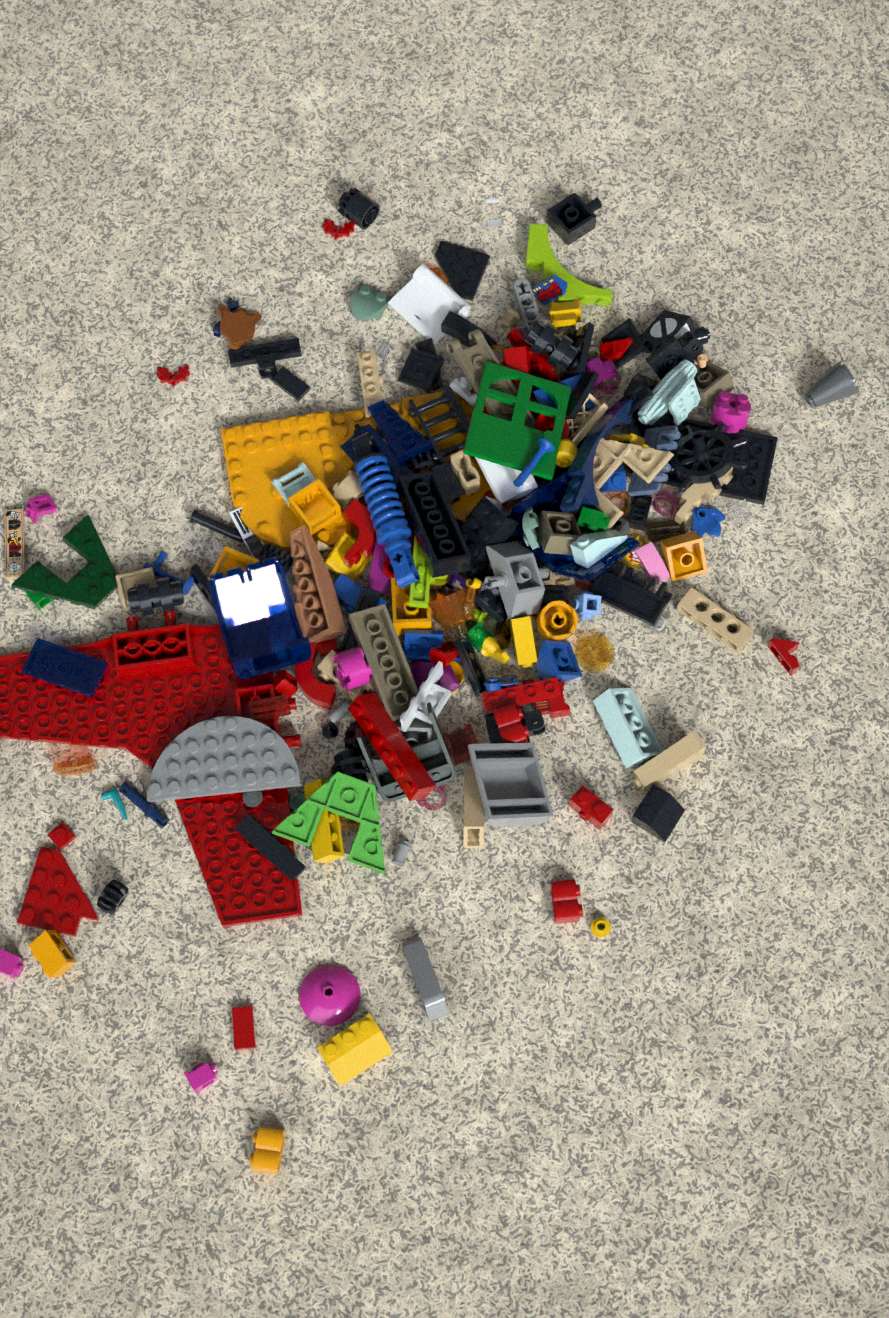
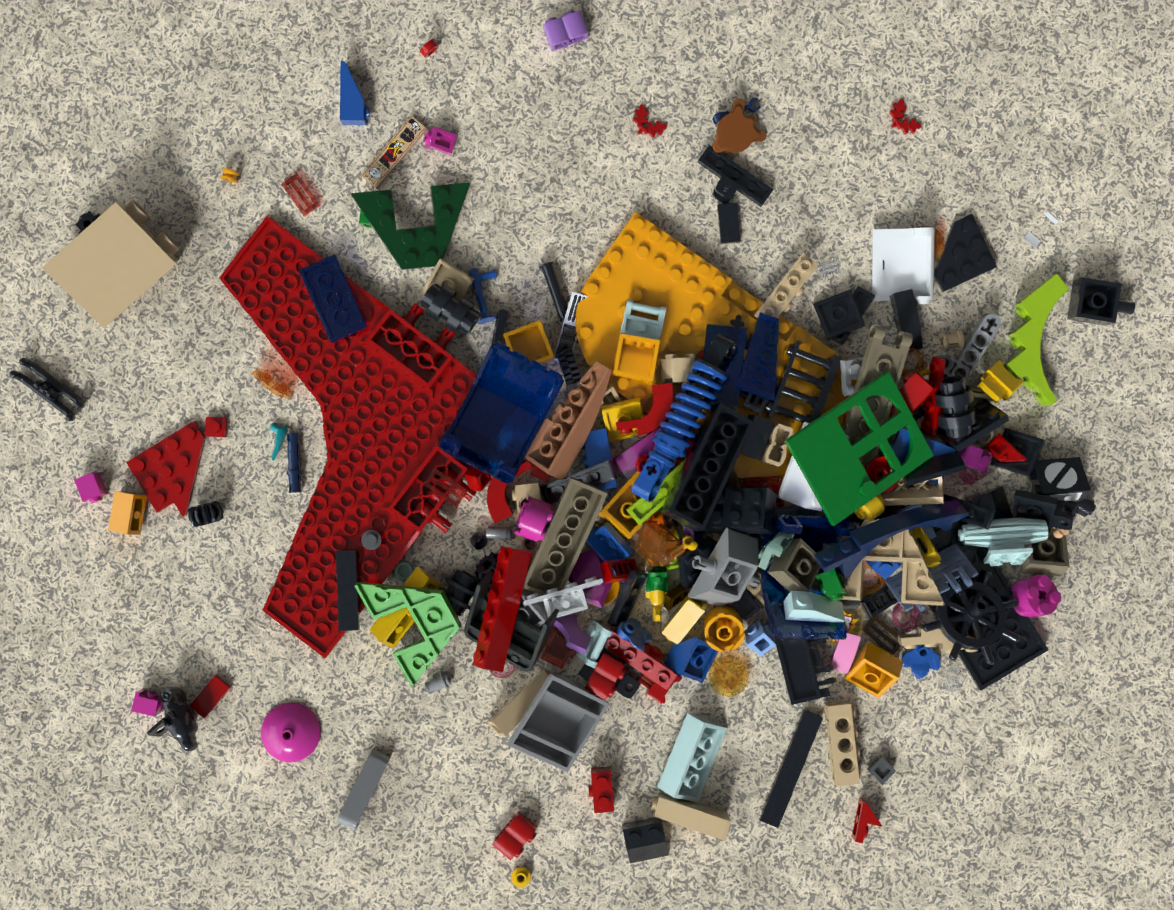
camera: 40 degrees right, 20 degrees up
(60, 369) = (565, 30): none -> medium lavender brick
(221, 759) = (377, 492): light grey plate -> none
(234, 1059) = (178, 719): none -> black piece
(268, 1150) = (144, 799): light orange brick -> none
(354, 1049) = (268, 788): yellow slope -> none
(358, 208) = (936, 118): black gear -> none
(368, 303) = (858, 213): sand green slope -> none
(458, 722) = (573, 634): none -> medium lavender tile
(480, 716) = (599, 635): none -> light aqua plate
(544, 447) = (851, 497): blue piece -> none
(550, 289) = (1009, 350): slope -> none
(702, 671) = (790, 768): none -> black tile
(760, 612) = (881, 769): none -> dark grey plate
(832, 386) = (1136, 653): dark grey cone -> none

